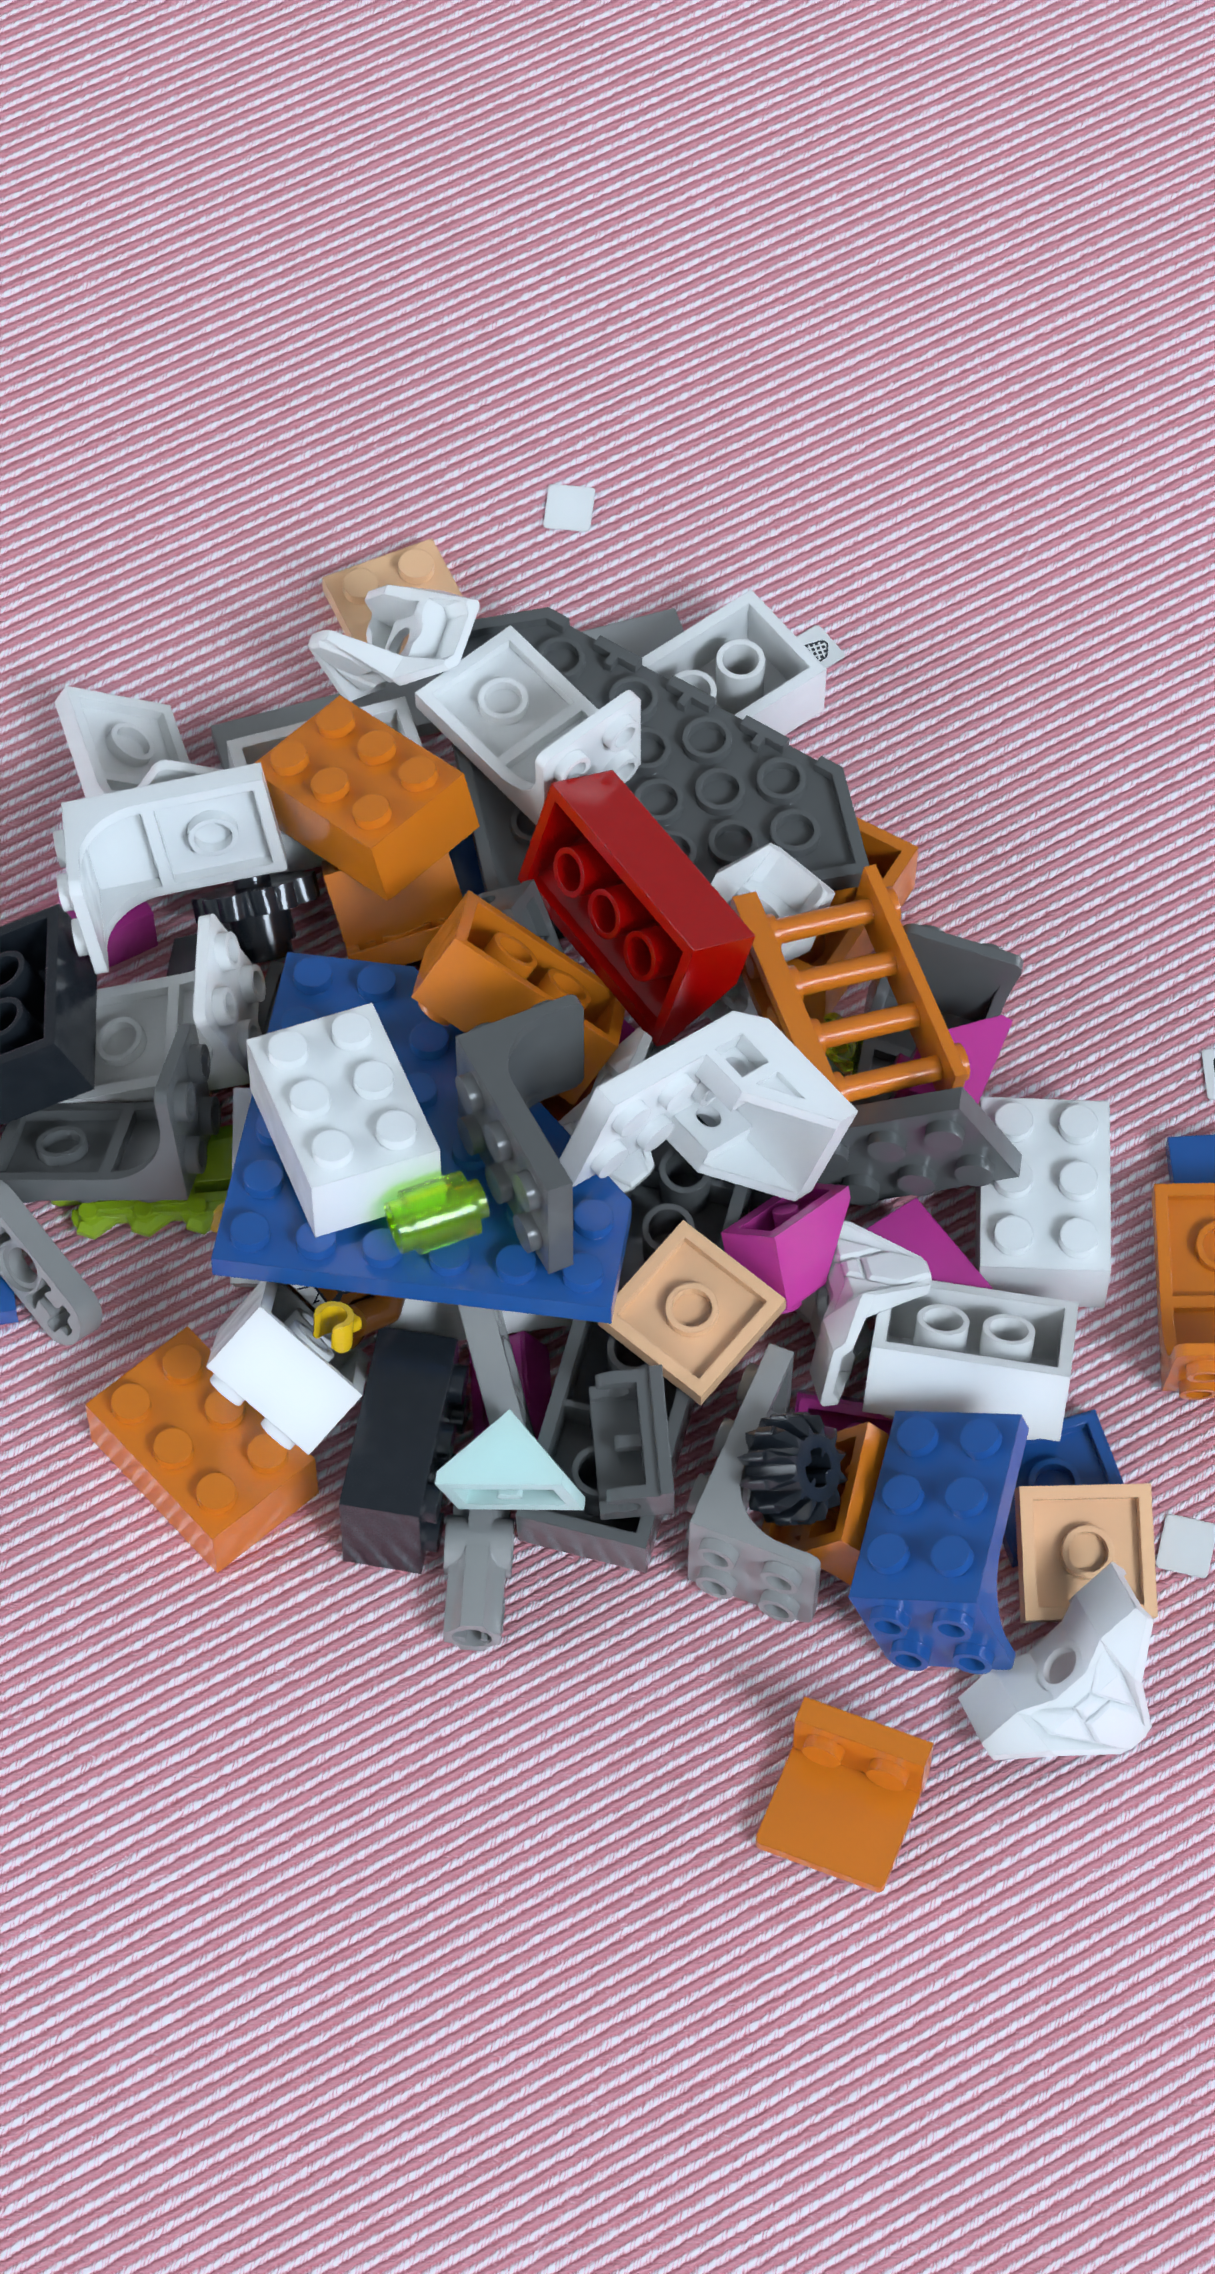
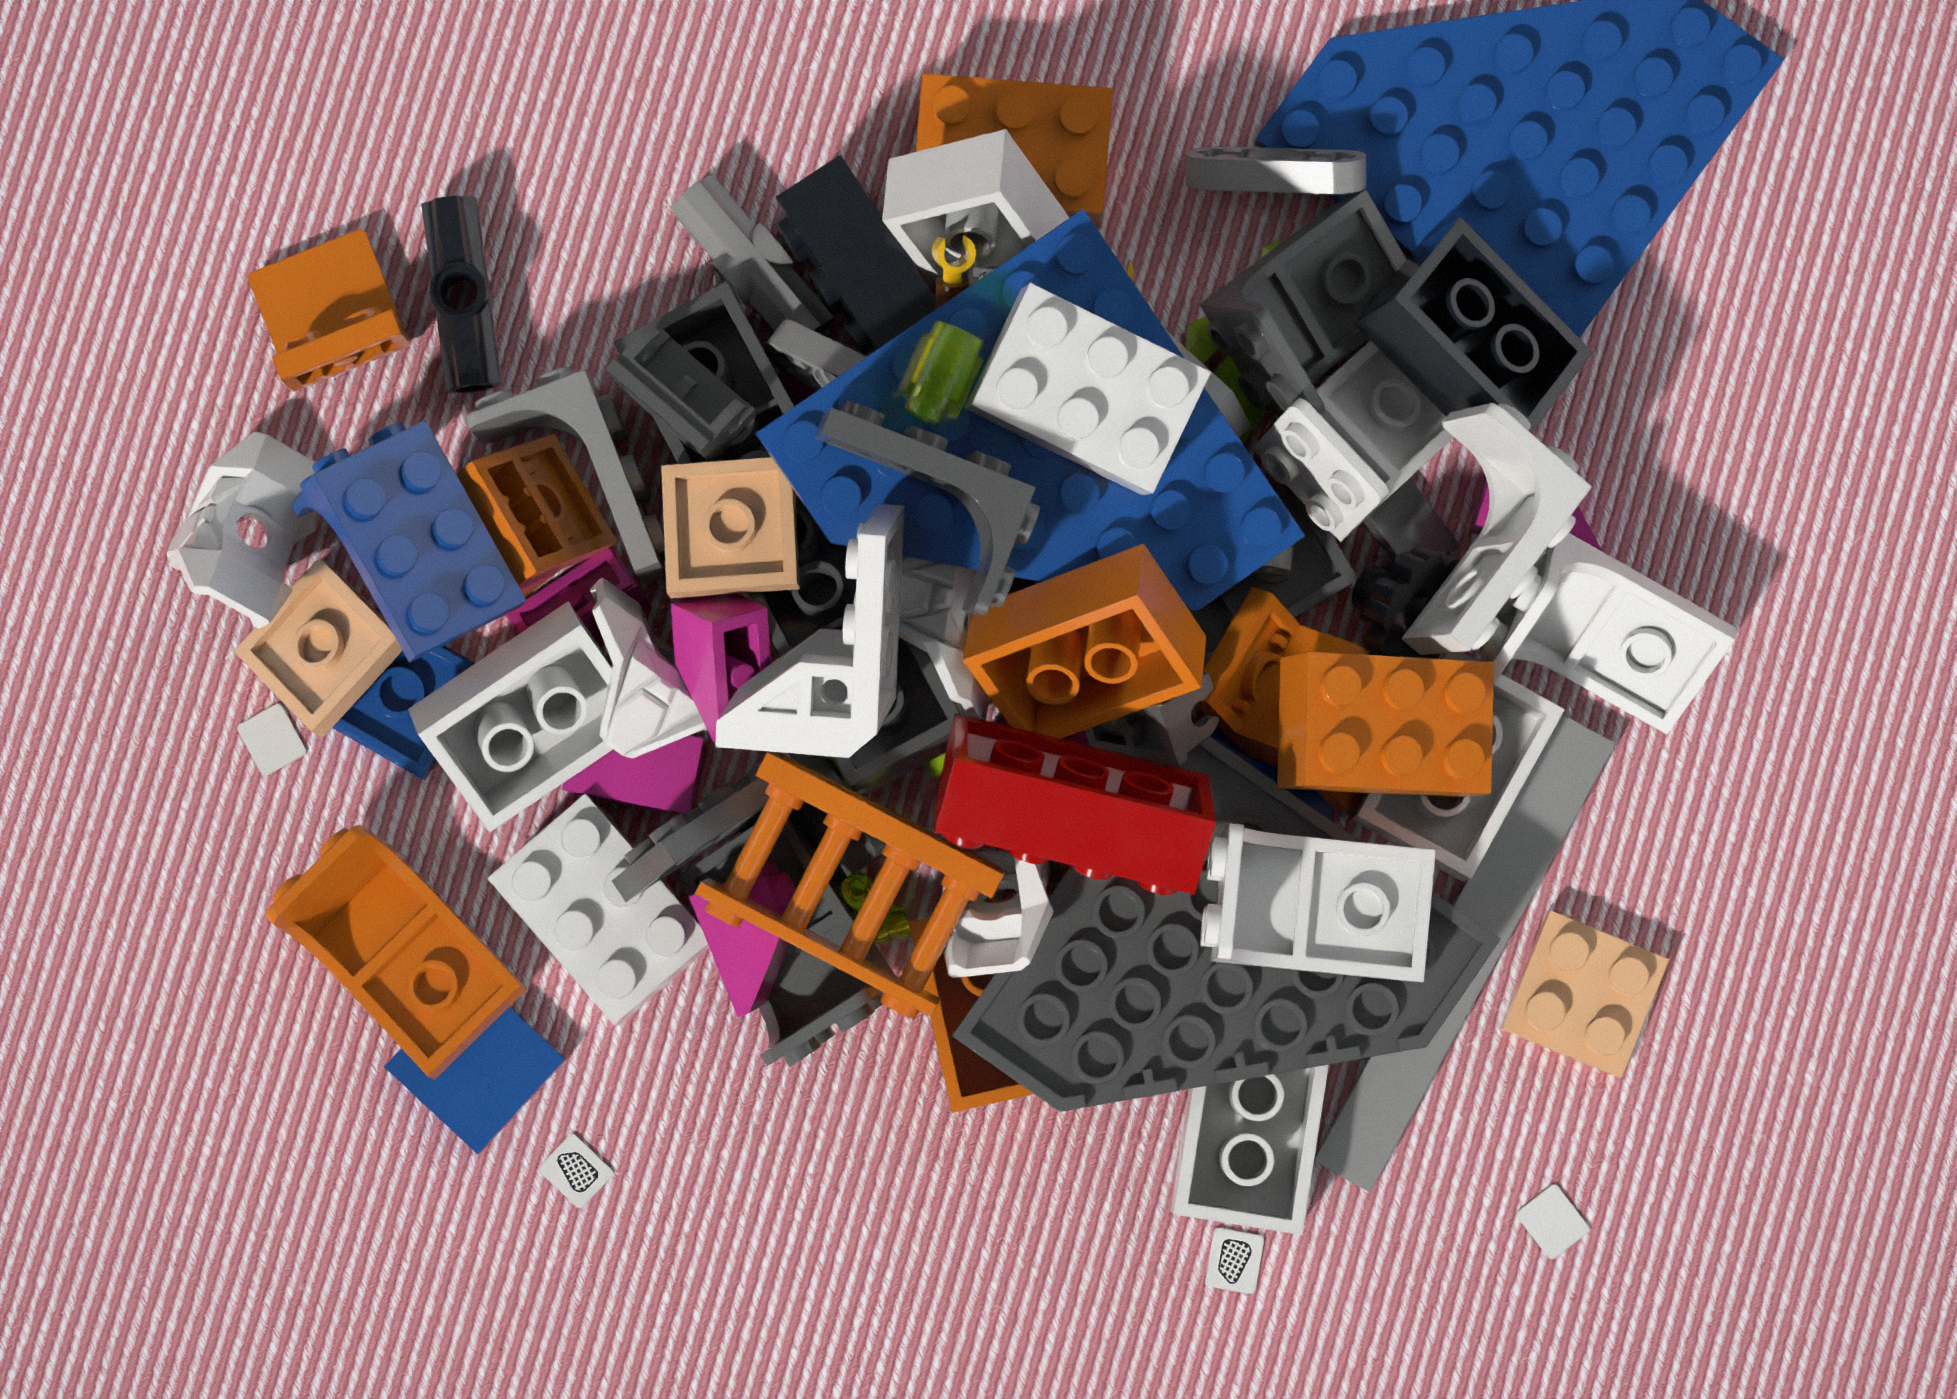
camera: 140 degrees right, 25 degrees up
(437, 638) = (1466, 907): white piece -> none
(507, 1472) = (743, 298): light aqua slope -> none
(704, 1749) = (458, 255): none -> black piece
(792, 1468) = (550, 477): black gear -> none

